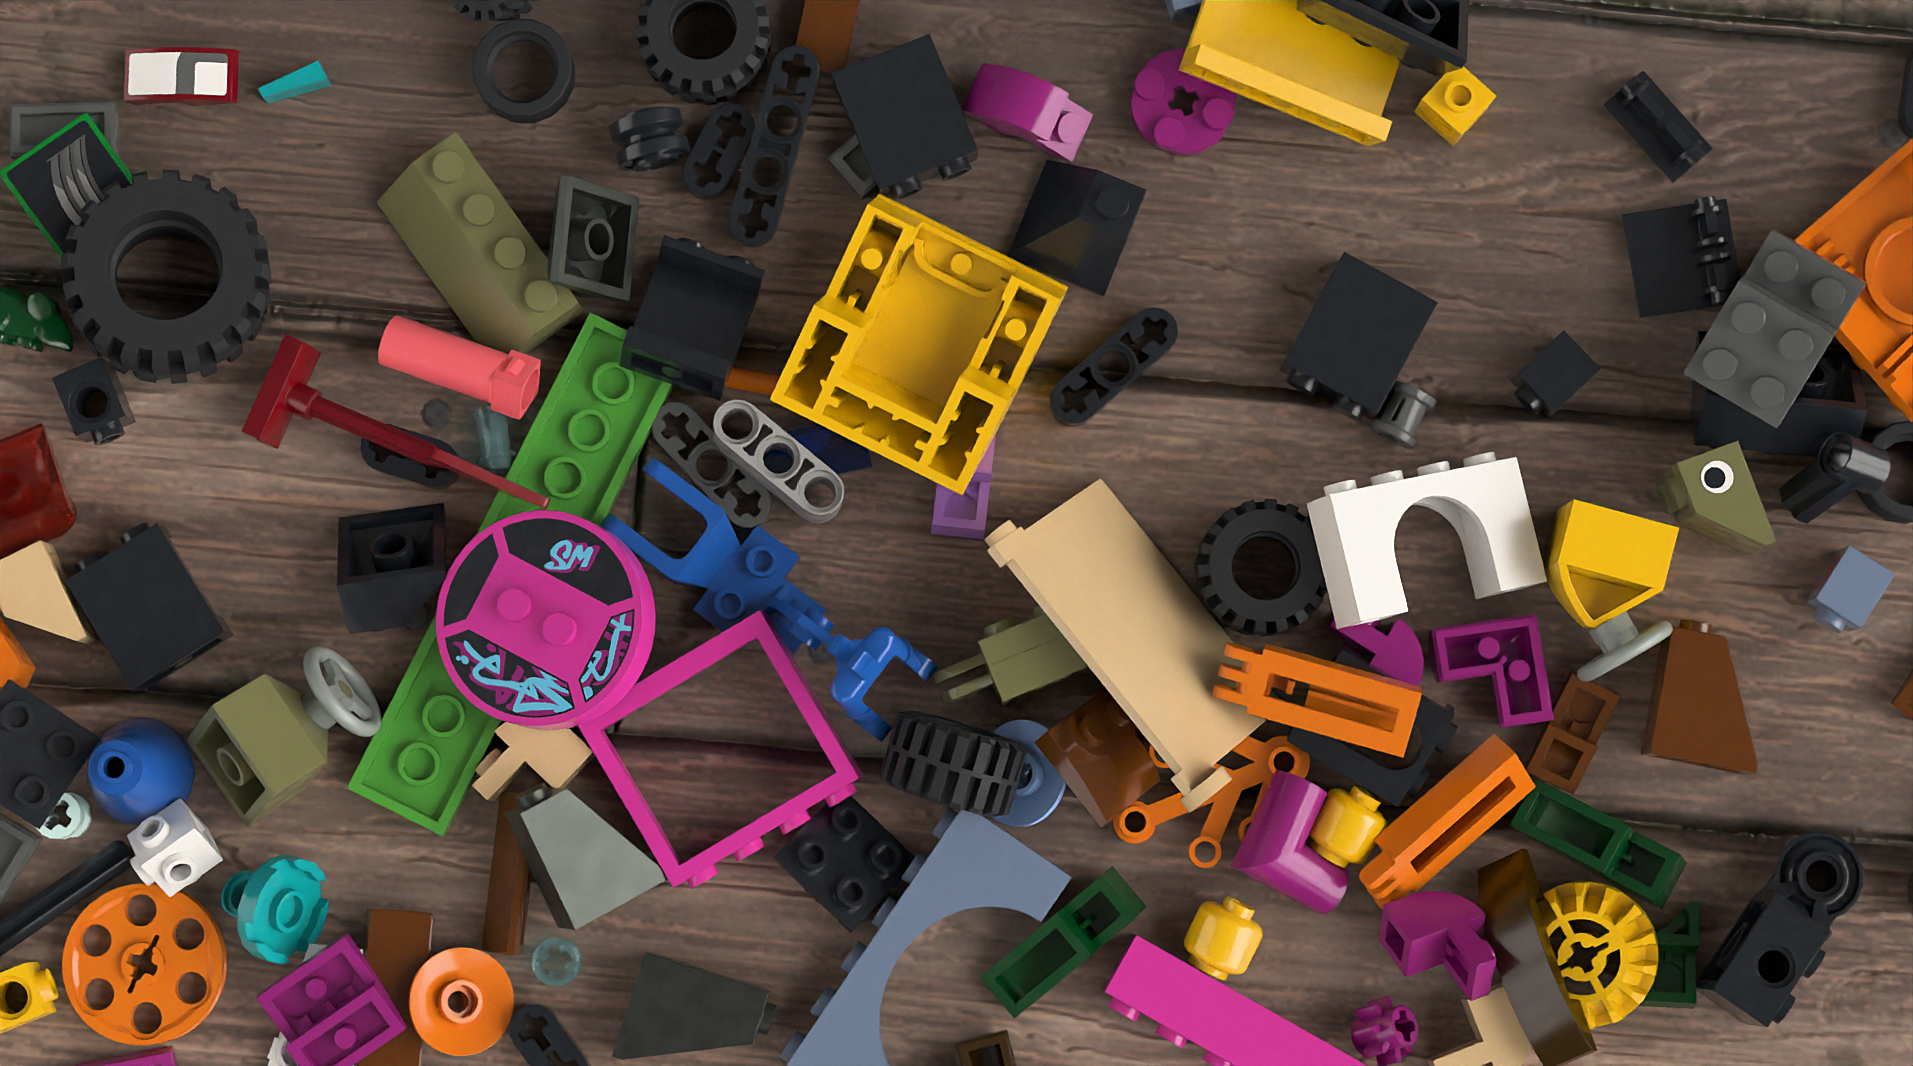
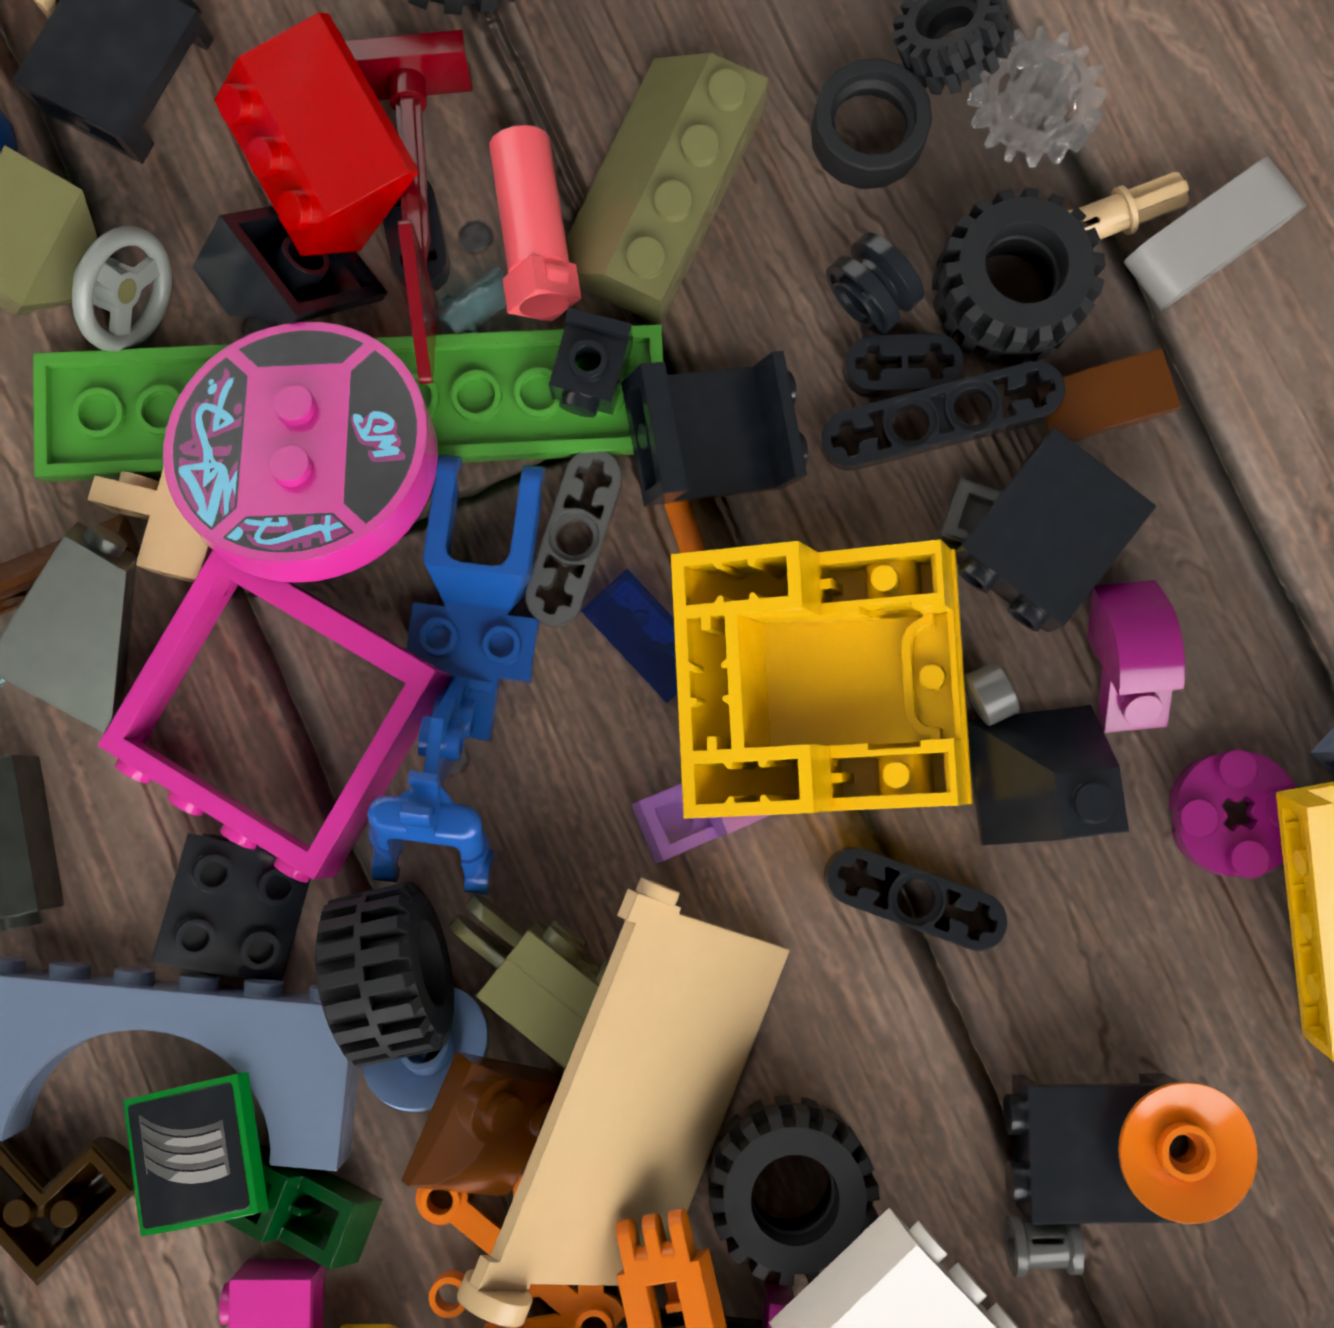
camera: 60 degrees right, 0 degrees up
(309, 486) = (316, 137): none -> red slope
(579, 364) = (596, 338): none -> black brick
(593, 240) = (736, 278): pearl dark grey slope -> none
(767, 437) = (620, 570): light grey beam -> none
(997, 227) = (991, 693): none -> dark grey piece
(1004, 970) = (195, 1155): none -> slope
(1386, 252) = (1213, 1170): none -> orange dish

